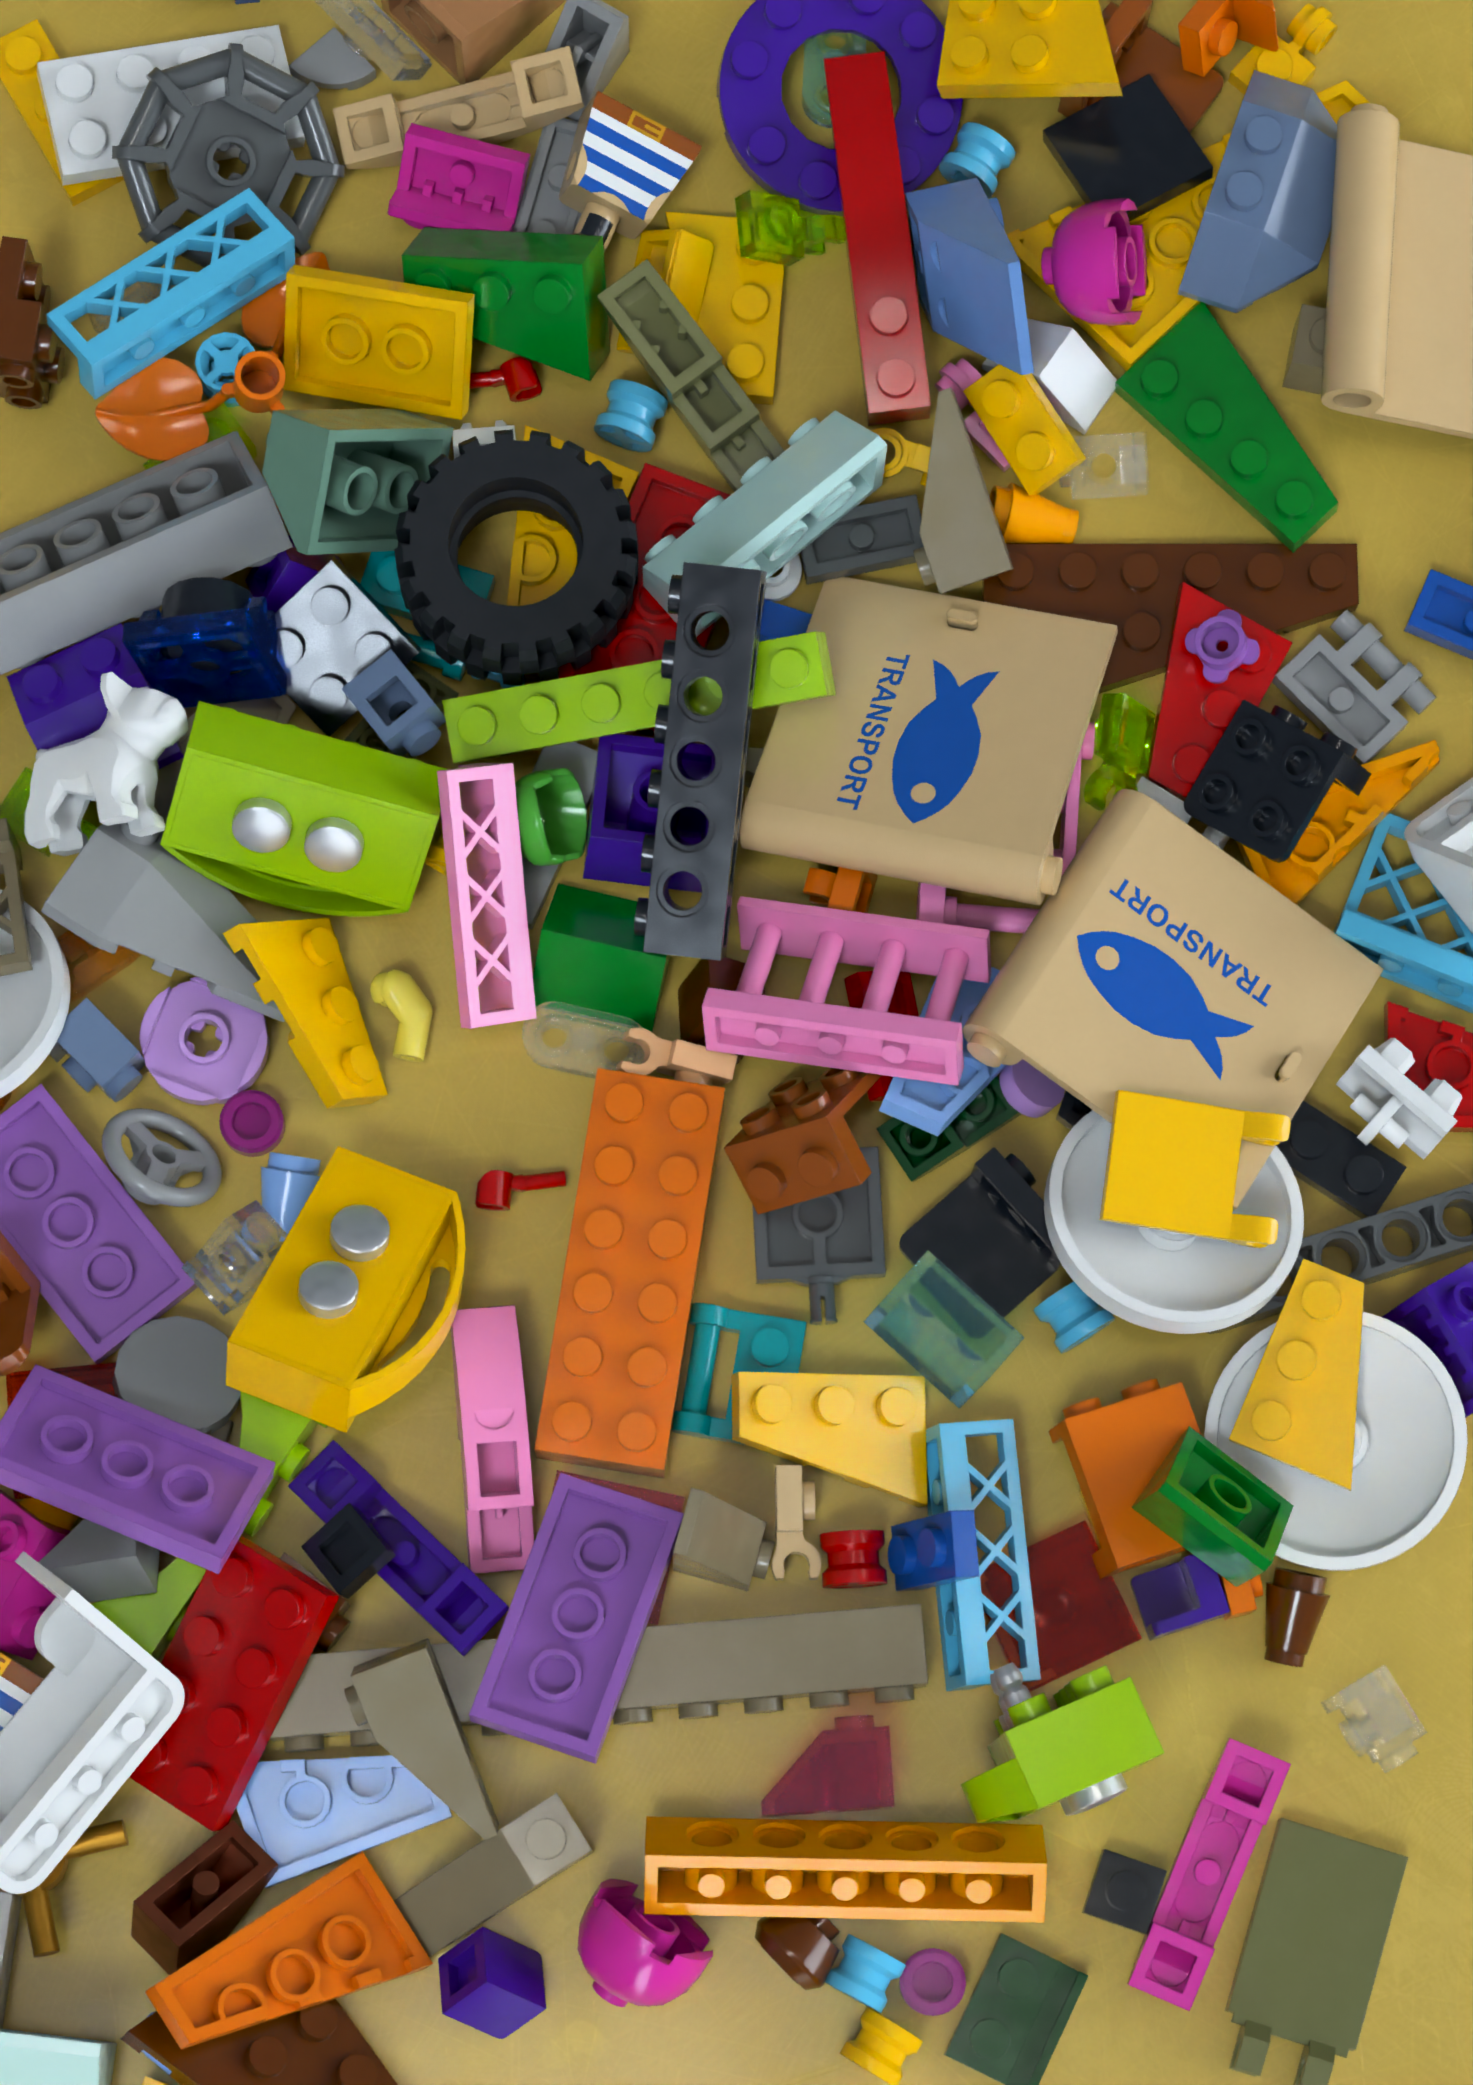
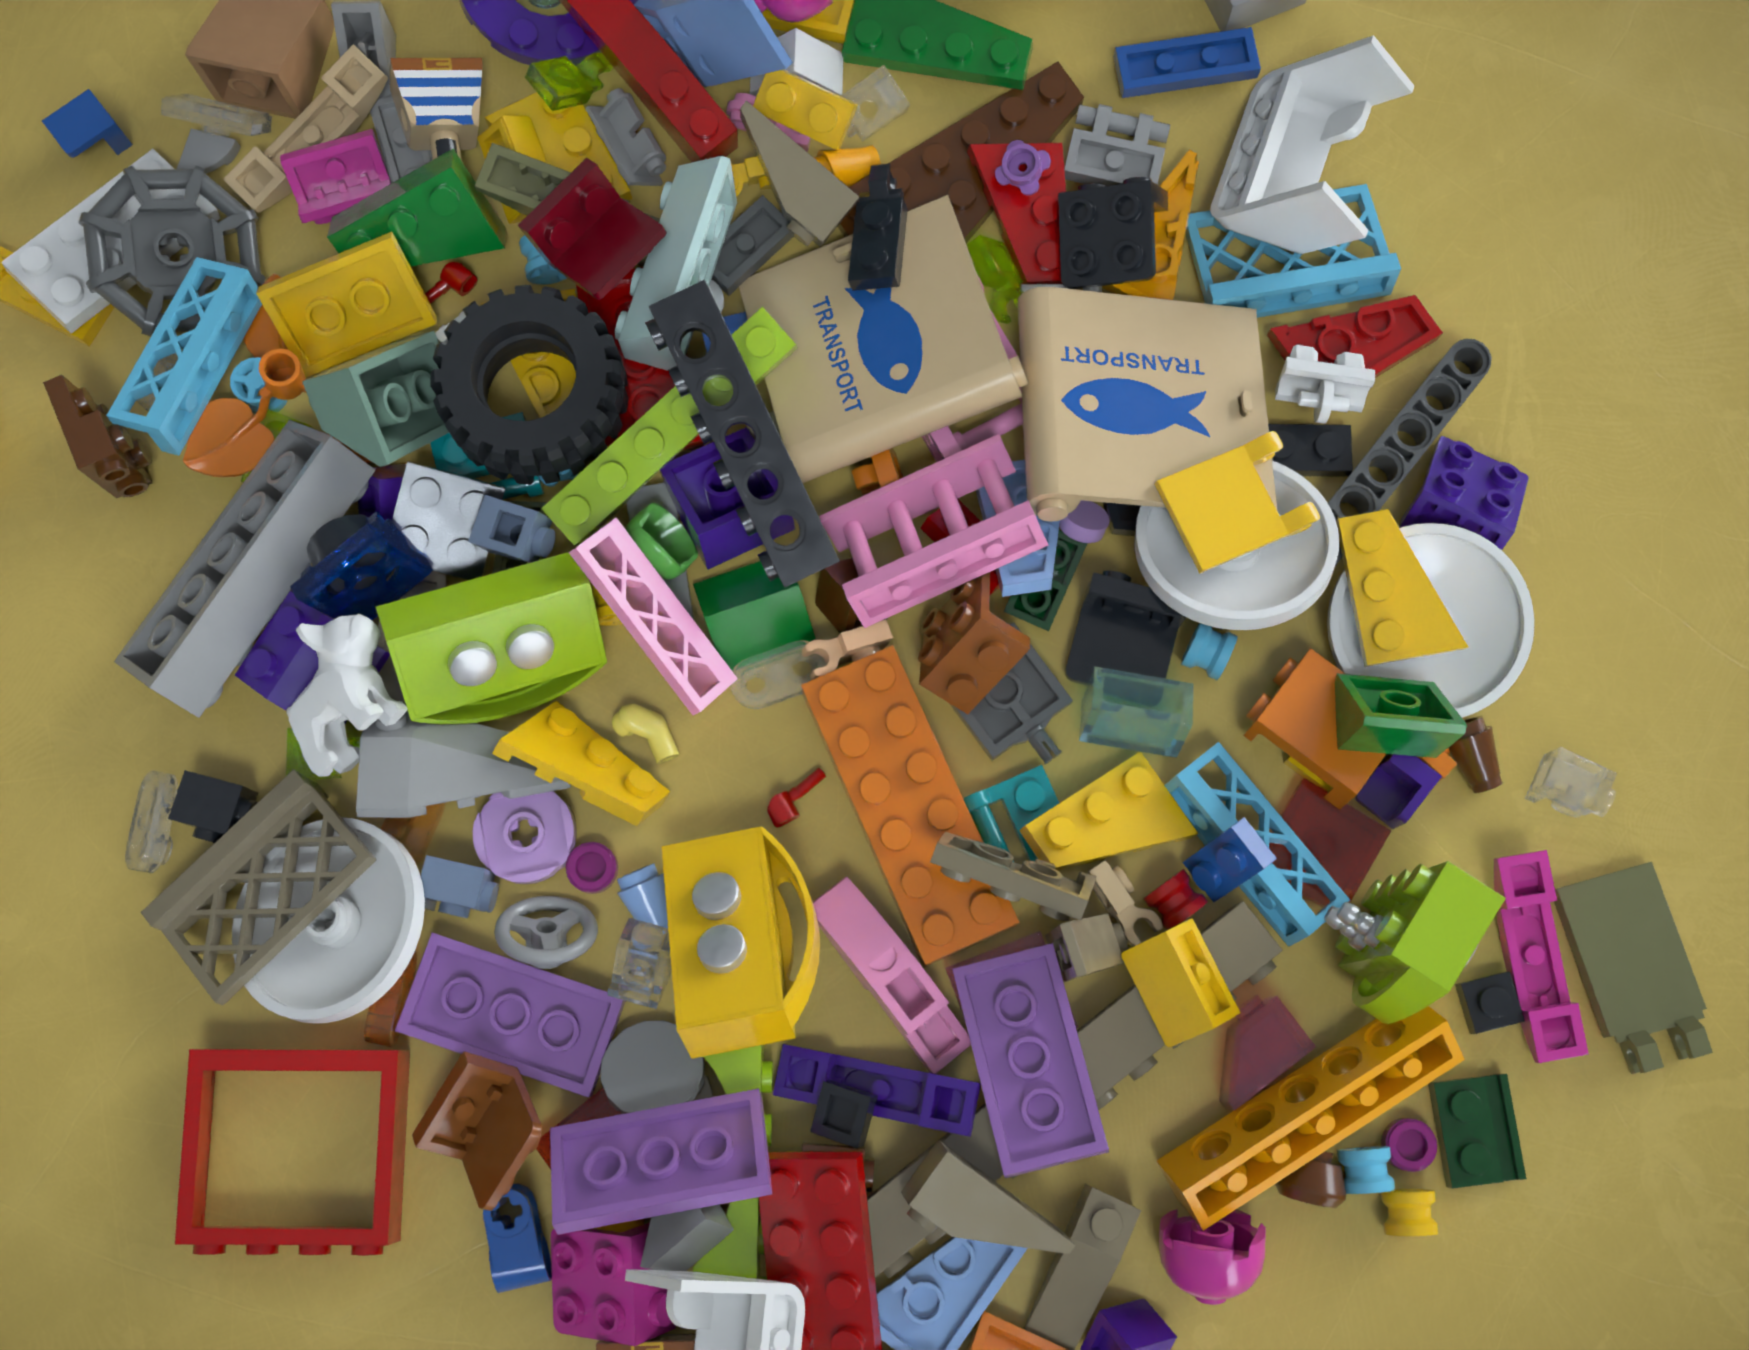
camera: 30 degrees left, 0 degrees up
(691, 427) = (590, 231): none -> dark red bracket
(700, 1431) = (1033, 881): none -> dark tan wing
(792, 1642) = (1180, 983): none -> yellow panel
(803, 356) = (636, 156): none -> light grey hinge
(1010, 621) = (878, 233): none -> black hinge

